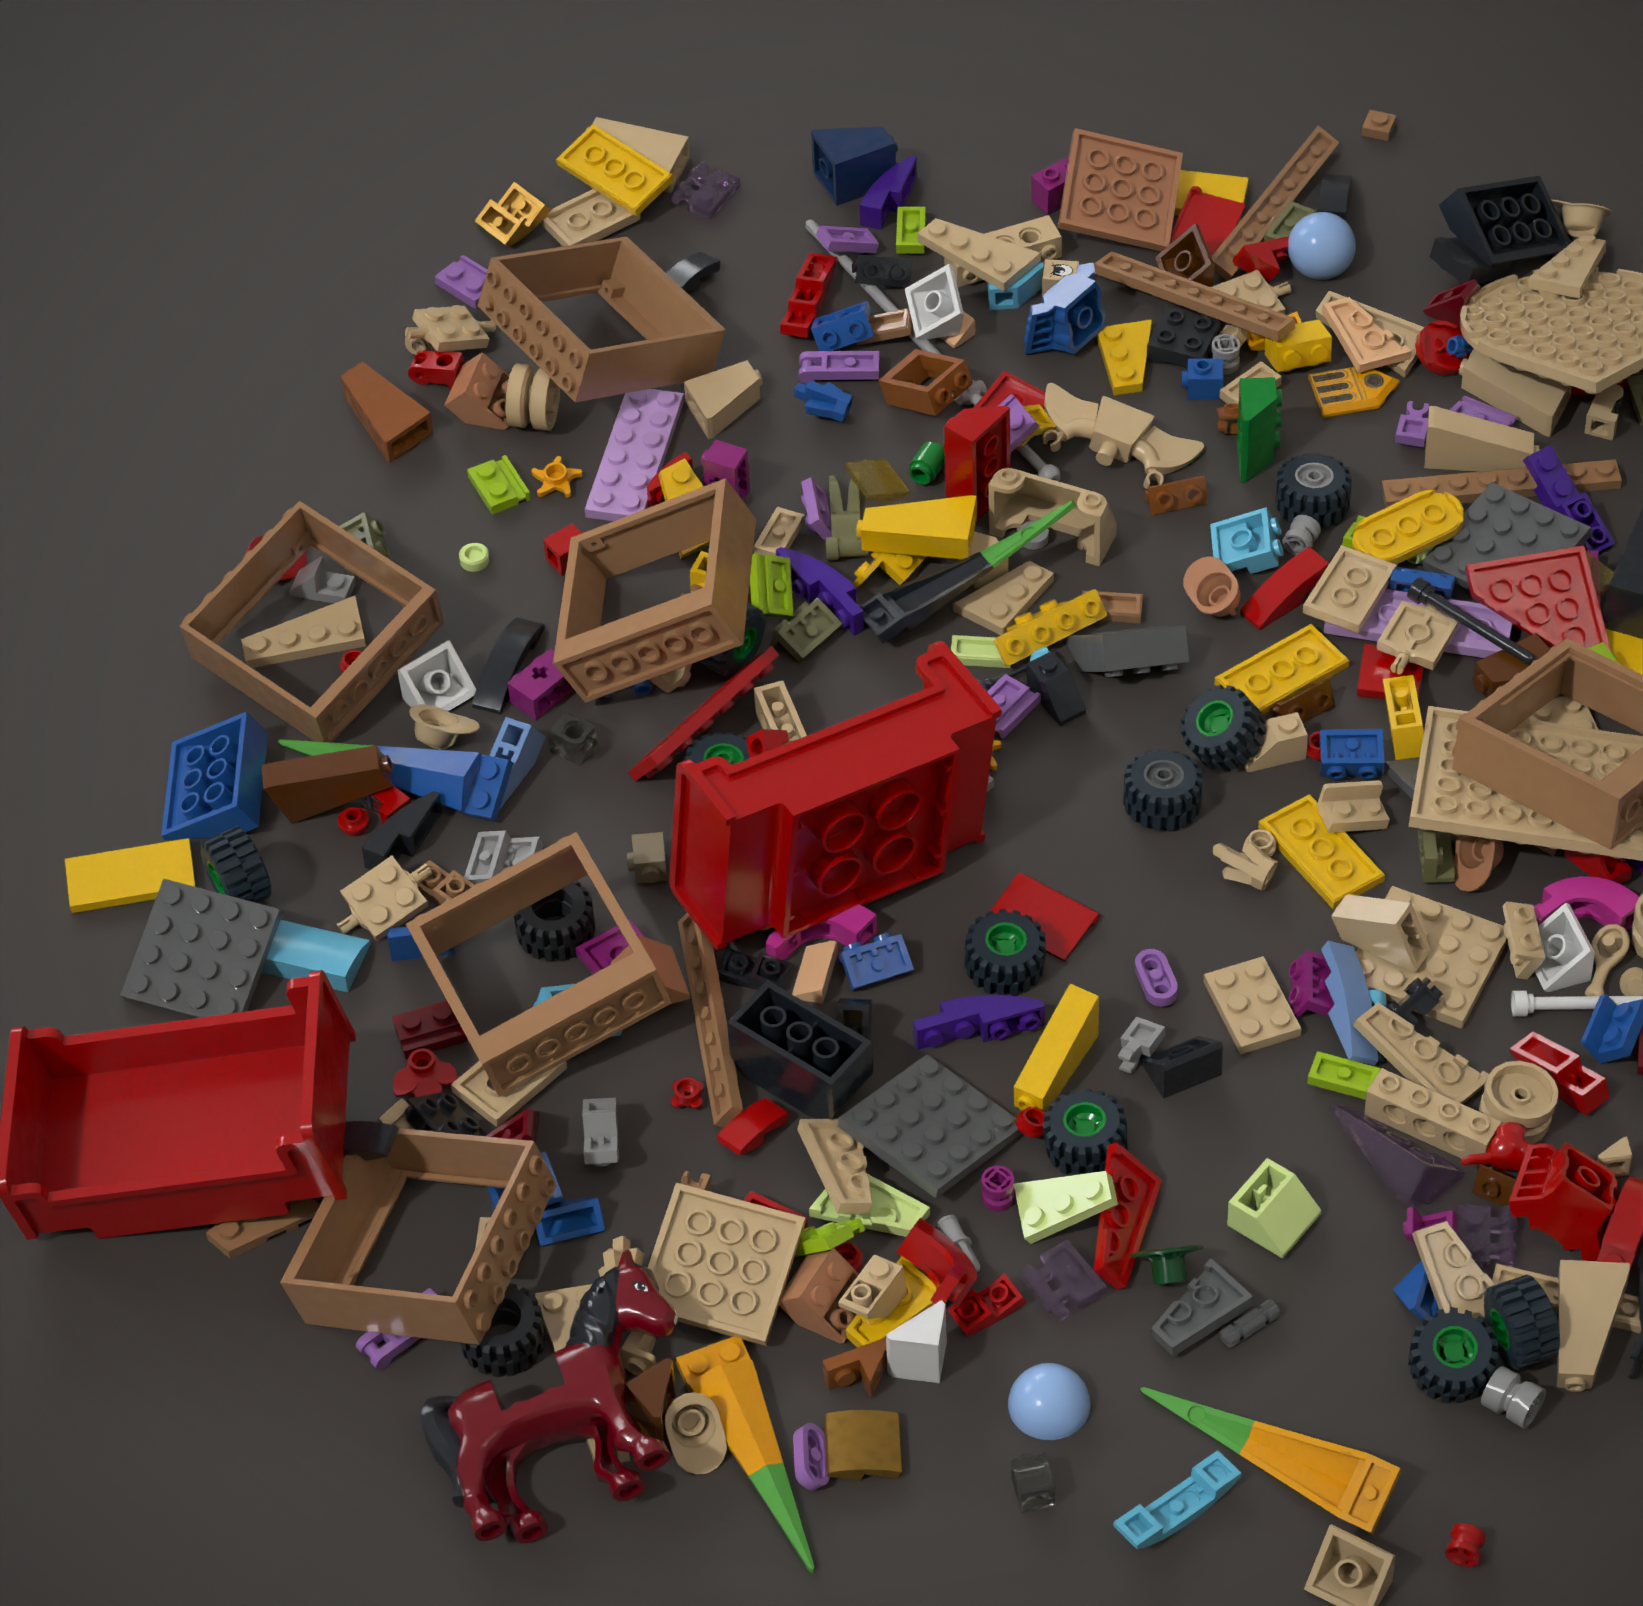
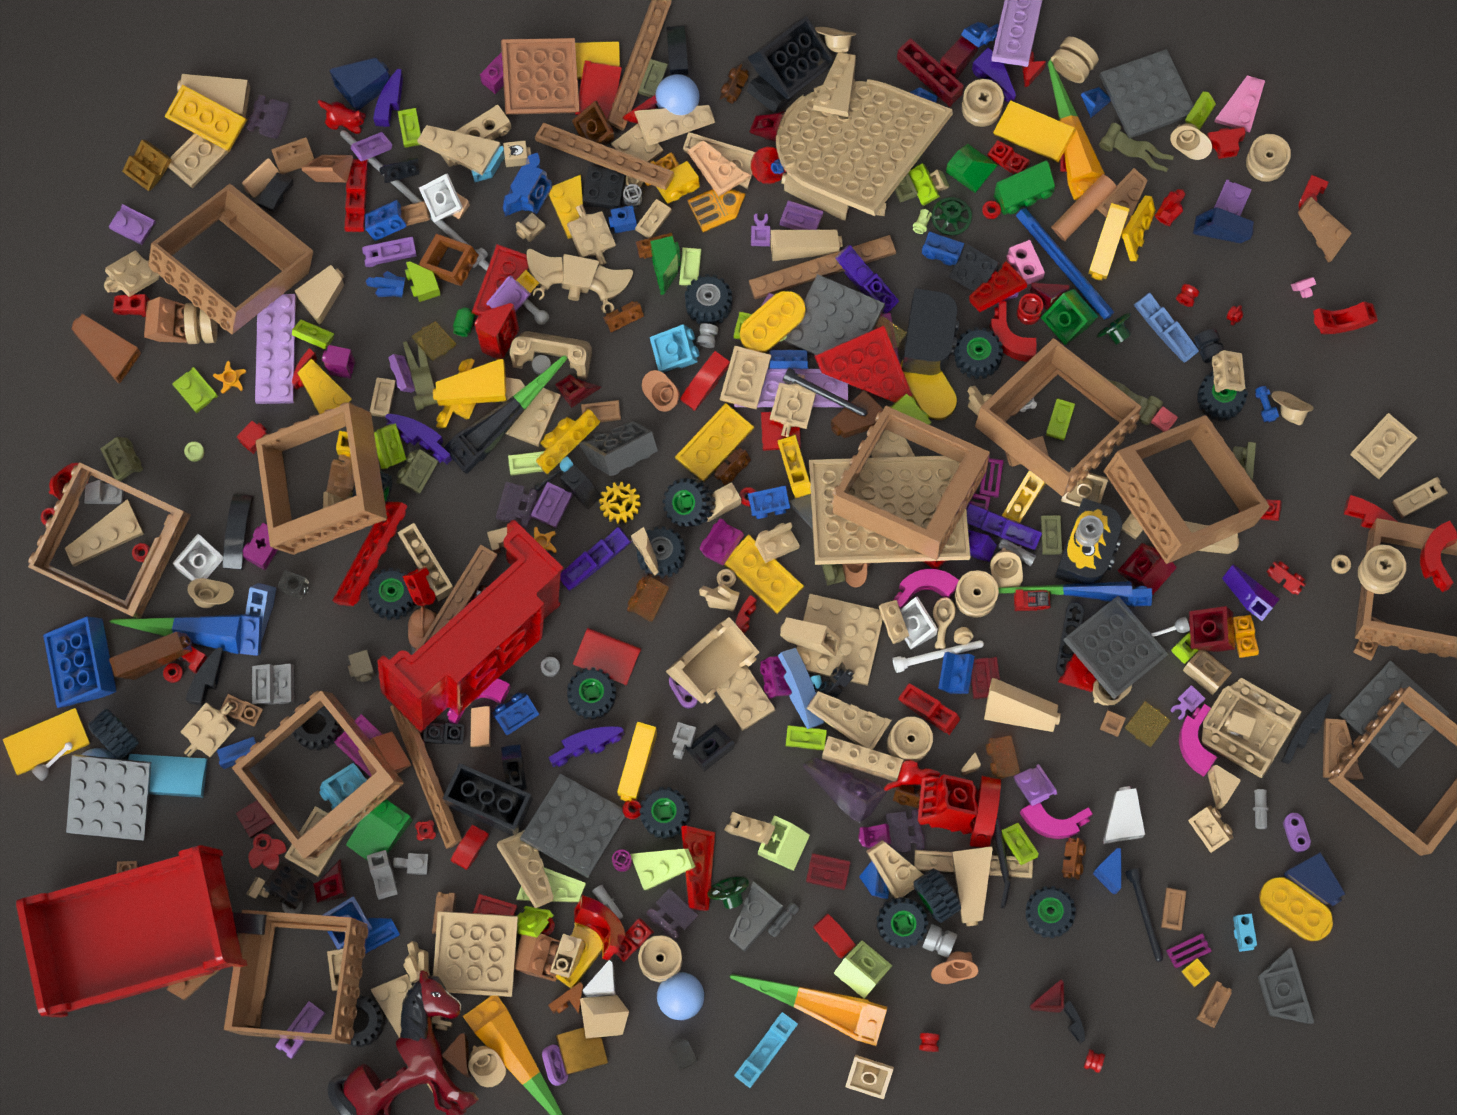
camera: 15 degrees left, 25 degrees up
(110, 908) = (41, 771): none -> hinge
(617, 1067) = (379, 830): none -> green slope
(657, 1137) = (415, 863): none -> light grey plate
(674, 249) = (259, 179): none -> light nougat slope
(687, 439) = (312, 334): none -> lime plate
(729, 235) = (292, 155): none -> medium nougat hinge
(775, 254) = (329, 168): none -> nougat slope
(811, 199) = (339, 115): none -> red animal
(880, 406) = (423, 282): none -> lime slope
(911, 1400) = (603, 1016): none -> tan slope
(947, 914) = (550, 666): none -> light grey tile
(1027, 1330) = (655, 947): none -> tan wheel
(1051, 787) = (594, 559): none -> dark purple slope
(1059, 370) = (529, 227): none -> tan bracket
(1080, 573) = (575, 390): none -> dark red slope
(1112, 719) = (626, 500): none -> yellow gear
(1129, 847) = (647, 598): none -> clear orange bracket
(1135, 745) = (643, 544): none -> tan slope
(1151, 387) = (591, 234): none -> tan plate
(1215, 935) = (713, 661): none -> tan windscreen
(1221, 1175) = (750, 828): none -> tan plate
(1261, 793) = (721, 542): none -> magenta bracket
(1273, 900) = (748, 608): none -> red slope
(1291, 274) = (662, 125): none -> tan wing
(1294, 443) = (689, 265): none -> yellowish green tile
(1334, 1359) = (834, 935): none -> red slope
(1341, 1267) = (828, 871): none -> dark red plate
(1369, 1415) = (862, 969): none -> yellowish green slope
(1404, 255) = (736, 77): none -> reddish brown hinge
(1530, 1443) = (956, 968): none -> nougat piece

